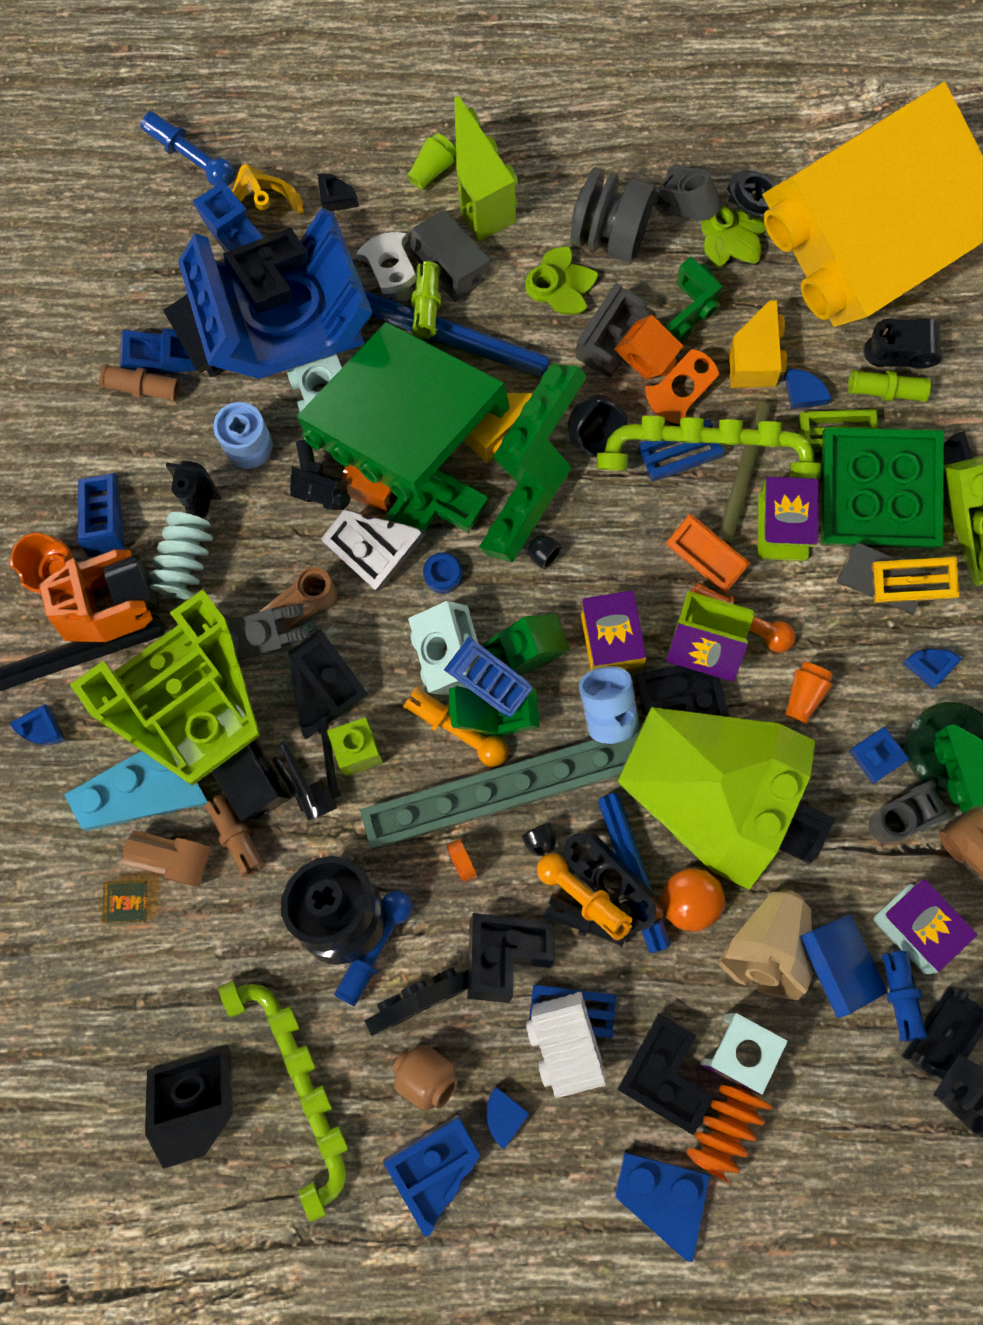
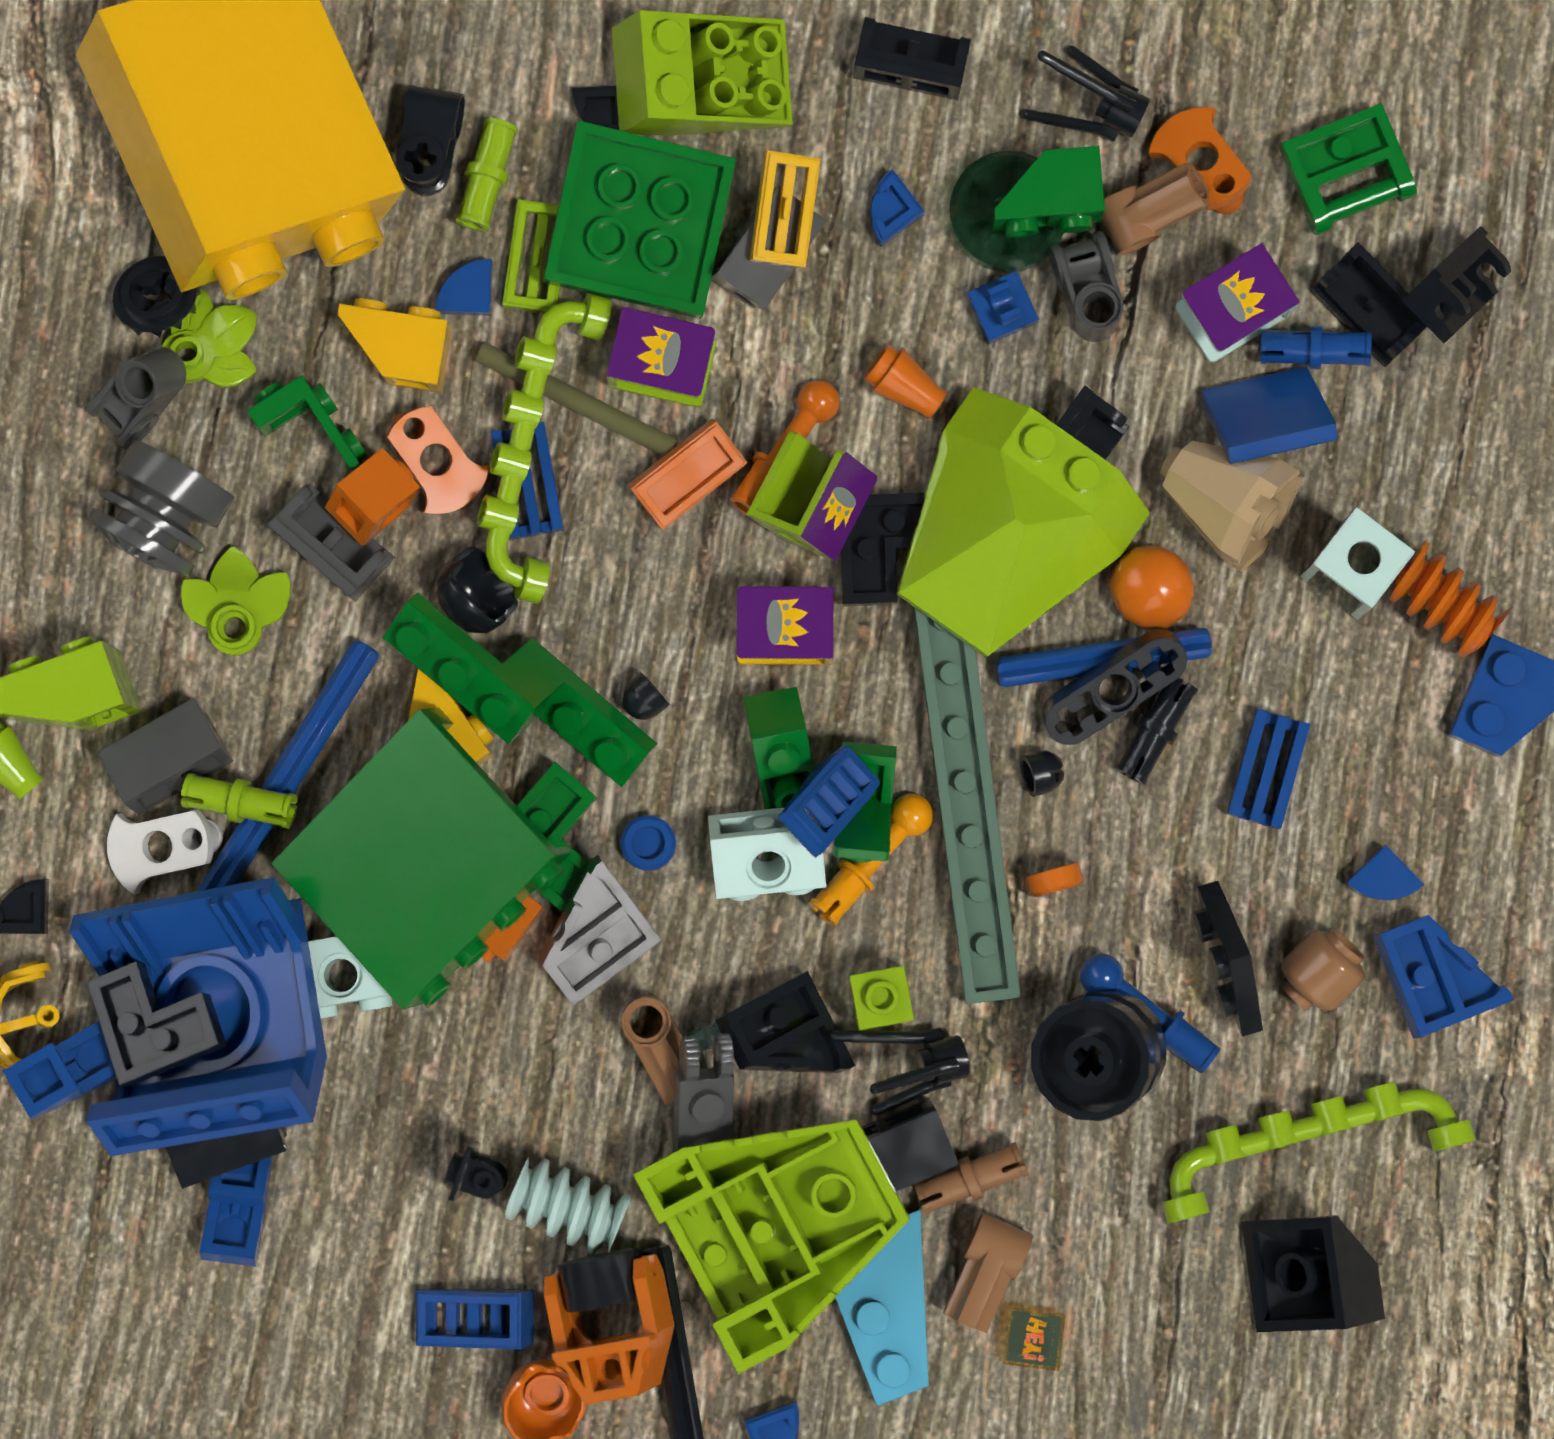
camera: 90 degrees left, 10 degrees up
(139, 382) = (283, 1238): medium nougat pin -> none
(243, 435) = (400, 1094): light blue wheel -> none
(312, 485) = (494, 1005): black piece -> none
(499, 944) = (1174, 850): black plate -> none
(567, 1045) = (1313, 782): white brick -> none
(596, 906) = (1086, 760): light orange pin -> none
(609, 704) = (884, 648): light blue wheel -> none
(654, 1081) = (1368, 680): black plate -> none

